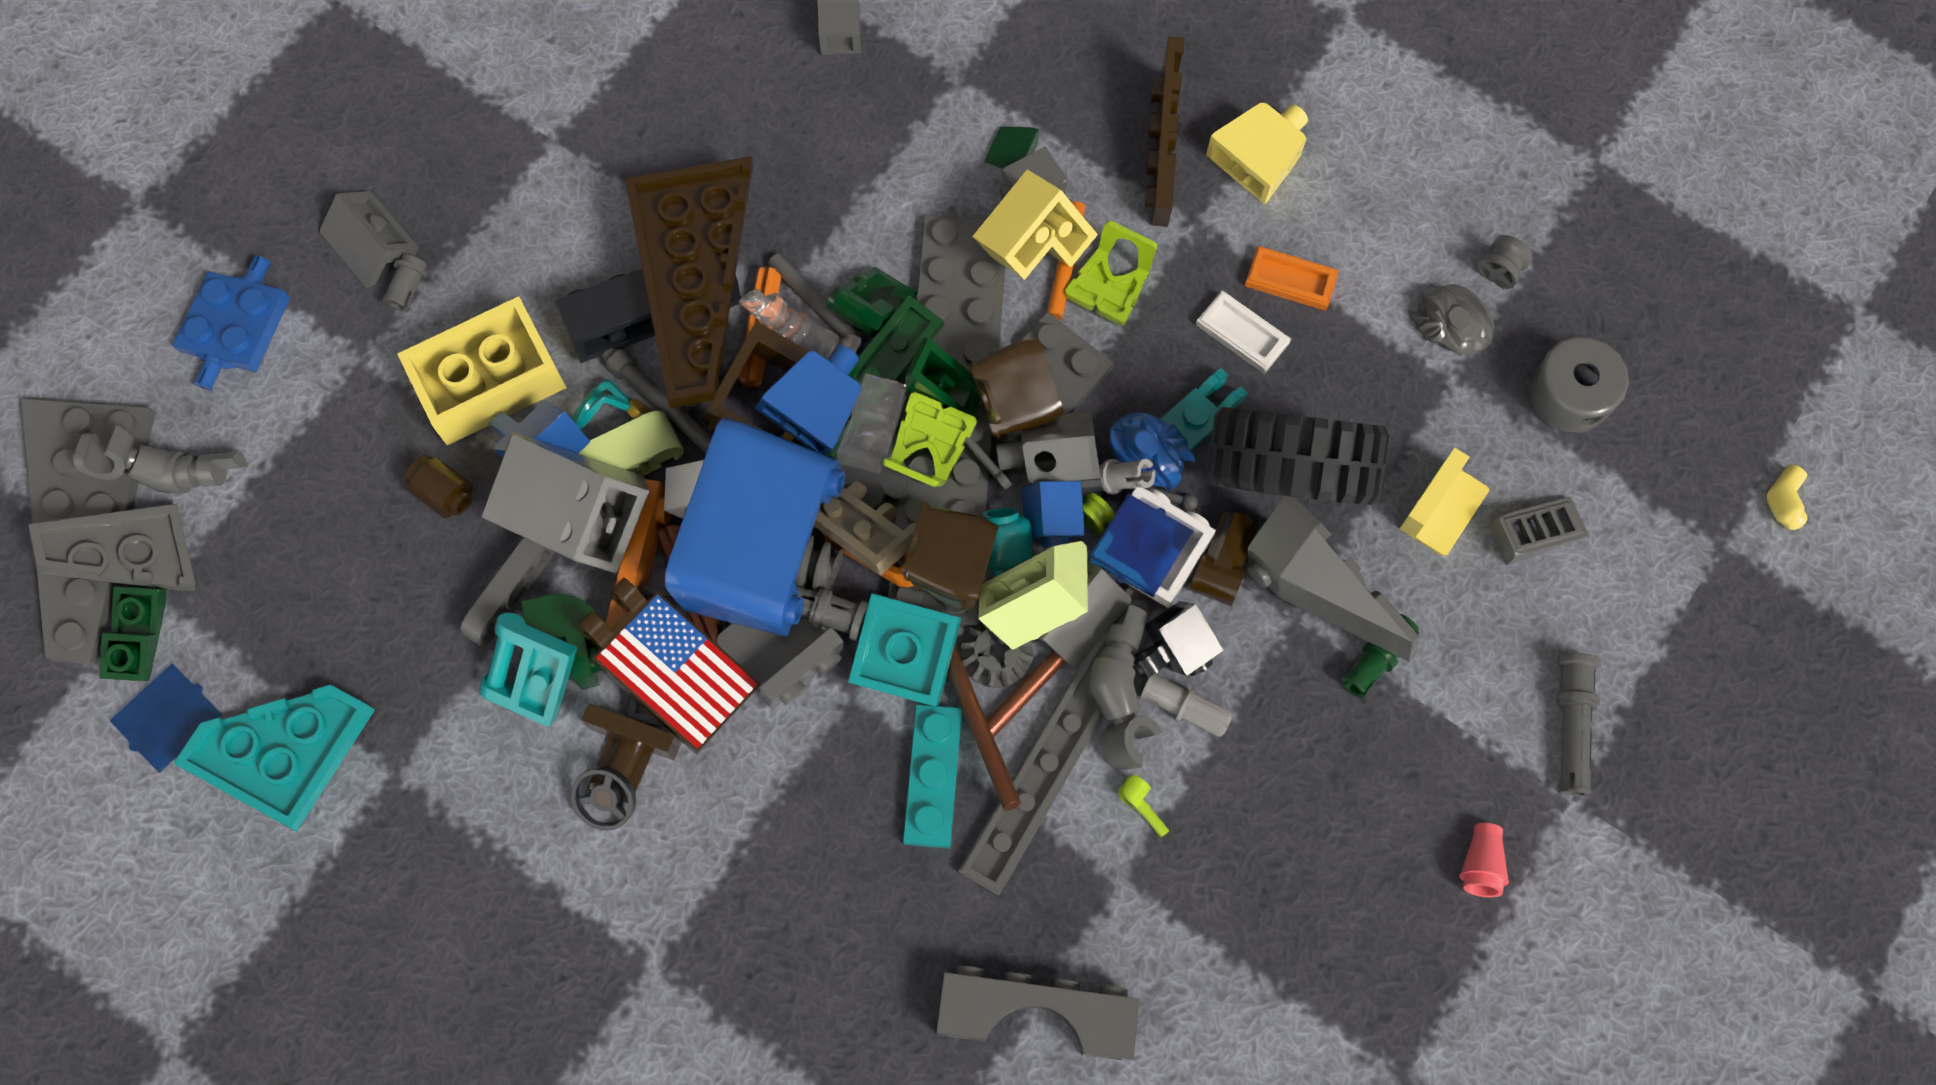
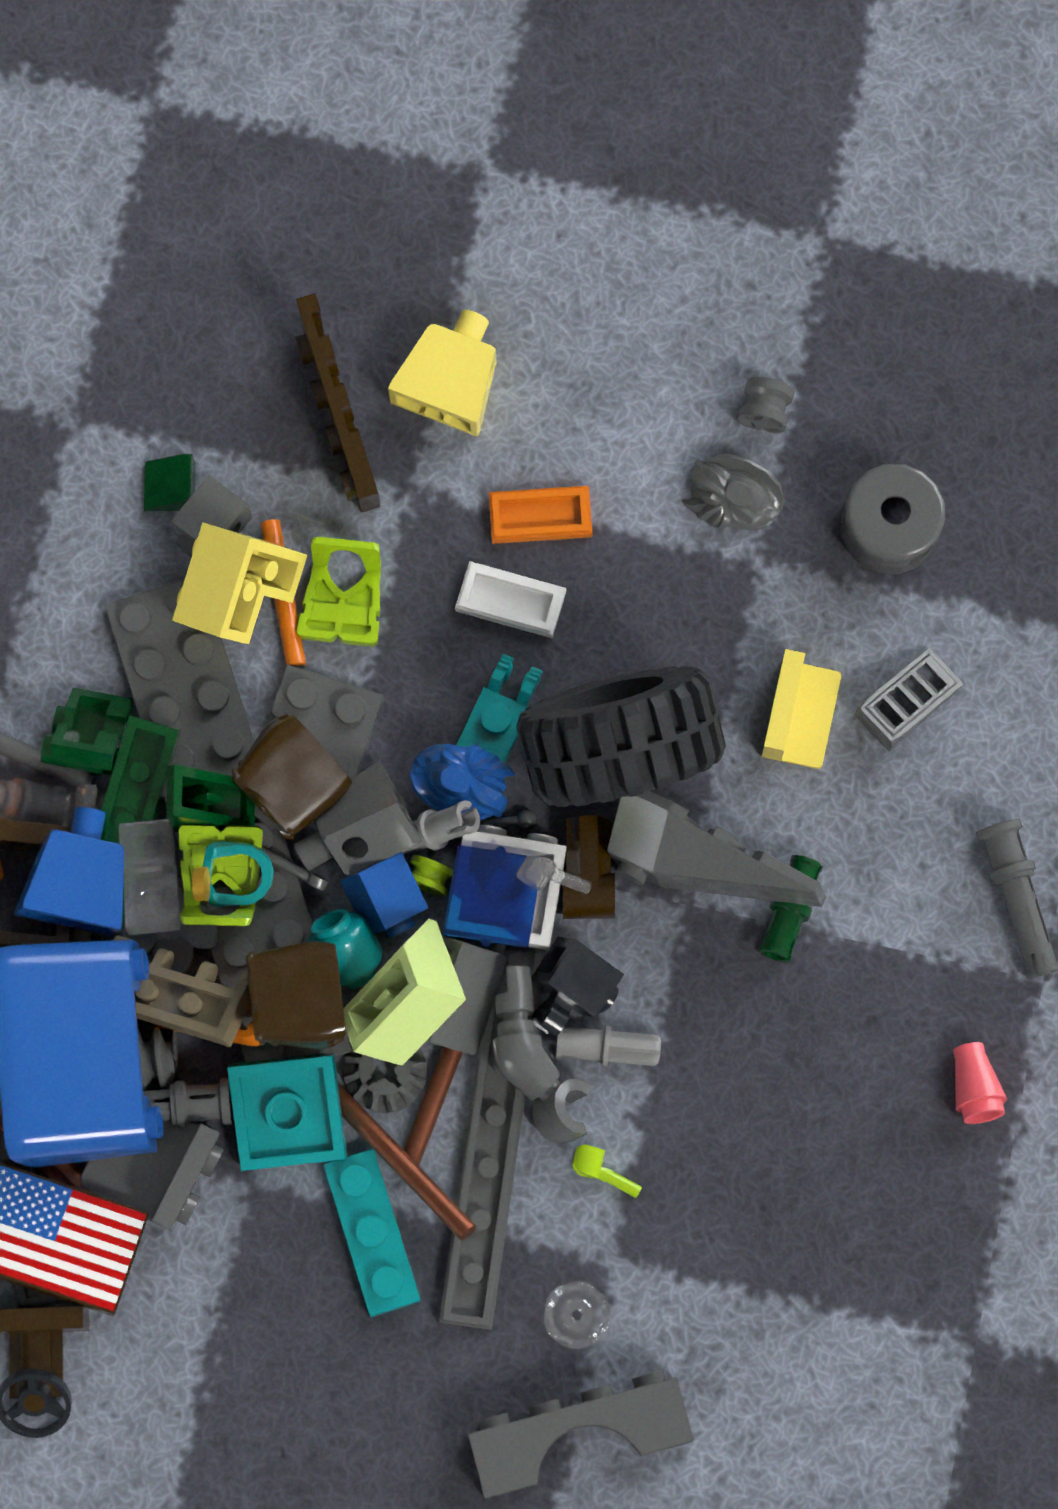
camera: 20 degrees left, 5 degrees up
(914, 432) = (203, 888): none -> teal piece
(1077, 897) = (580, 1297): none -> clear plate
(1189, 536) = (538, 870): none -> clear hand

